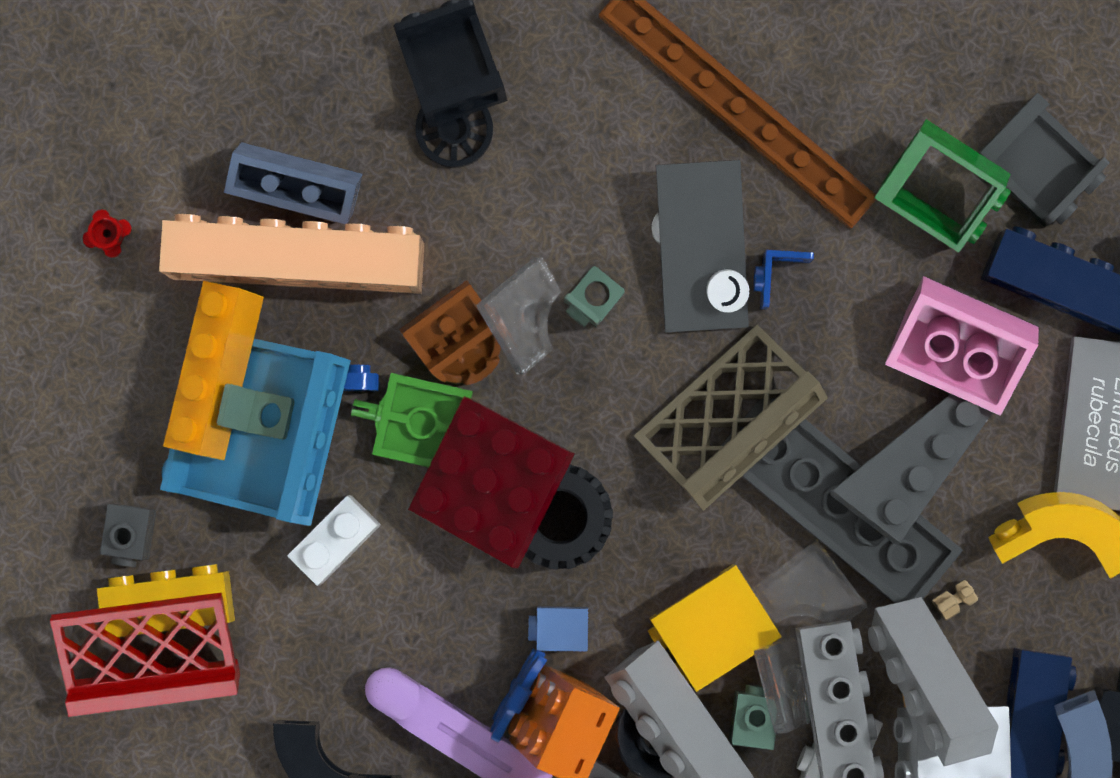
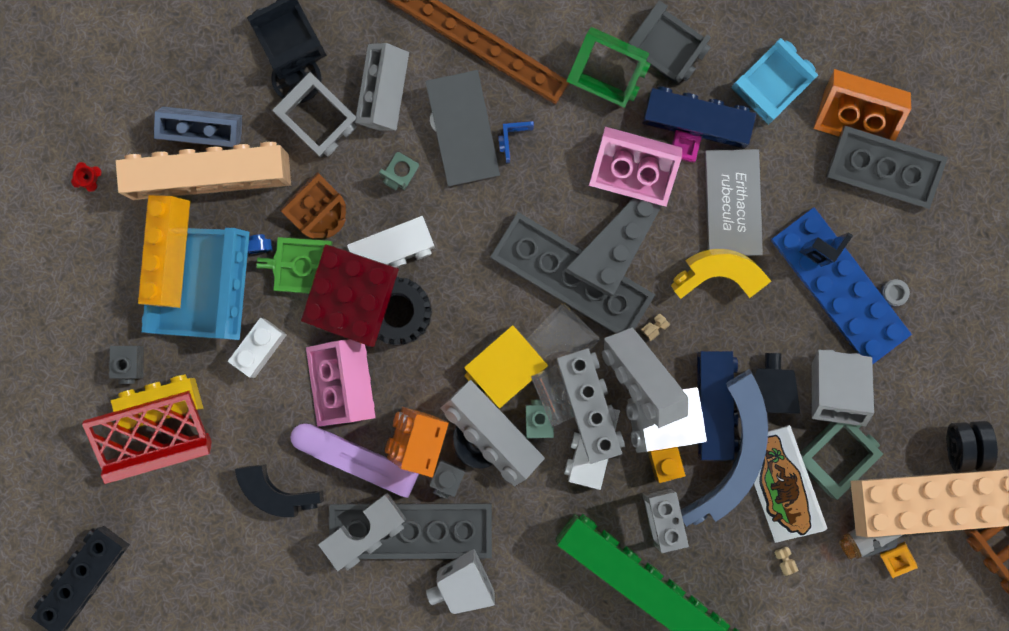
camera: 10 degrees left, 0 degrees up
(243, 408) = (186, 273): sand green bracket -> none
(453, 614) = (340, 382): none -> bright pink slope
(518, 694) = (387, 427): blue piece -> none
(519, 220) = (303, 88): none -> light grey window
(519, 314) = (353, 188): clear tile -> none
(559, 628) = (408, 382): medium blue brick -> none
(573, 411) = (396, 243): none -> white brick
(586, 163) = (382, 87): none -> light grey brick
(727, 290) = (482, 153): white tile -> none
(757, 436) = (497, 262): dark tan fence -> none
(1049, 320) = (689, 144): none -> dark pink tile

